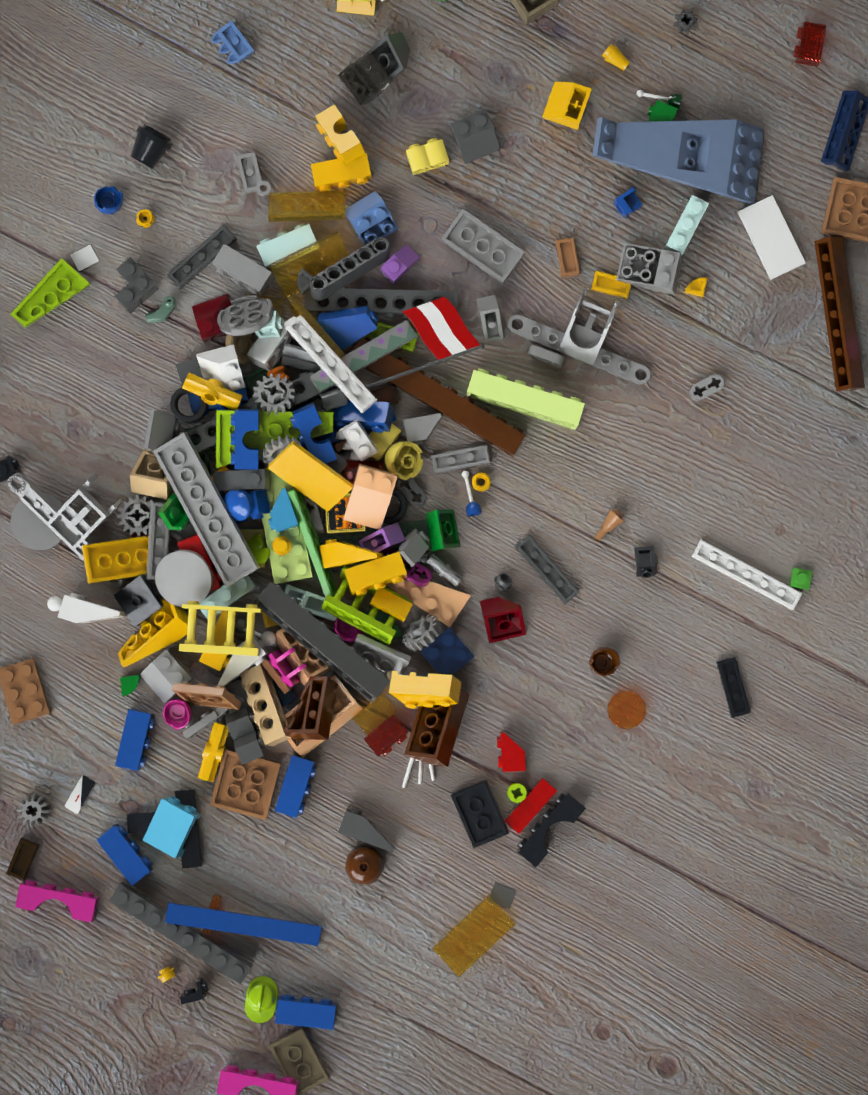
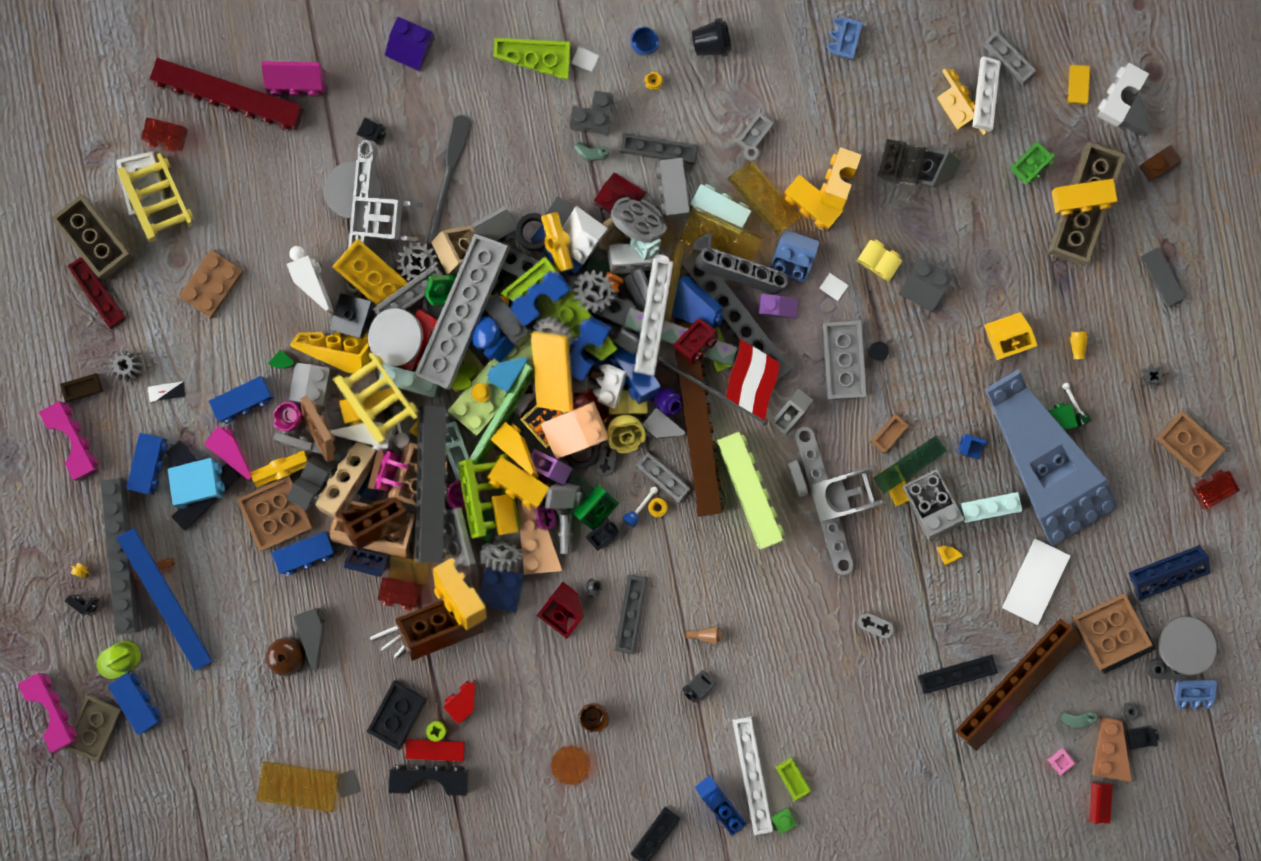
camera: 55 degrees right, 0 degrees up
(69, 411) = (456, 142): none -> dark grey piece
(164, 780) = (228, 448): none -> dark pink slope
(341, 742) = (366, 562): none -> dark blue bracket
(376, 346) = (696, 341): none -> dark red bracket
(405, 407) = (668, 401): none -> dark purple head
(419, 209) = (833, 286): none -> white sticker
(467, 541) = (602, 534): none -> black bracket
(497, 214) = (878, 351): none -> black tile
(604, 261) = (909, 464): none -> clear green tile
(750, 617) = (720, 805): none -> blue slope
(760, 35) = (1190, 444): none -> medium nougat plate
(774, 546) = (793, 779): none -> lime tile
(794, 354) = (957, 674): none -> black tile

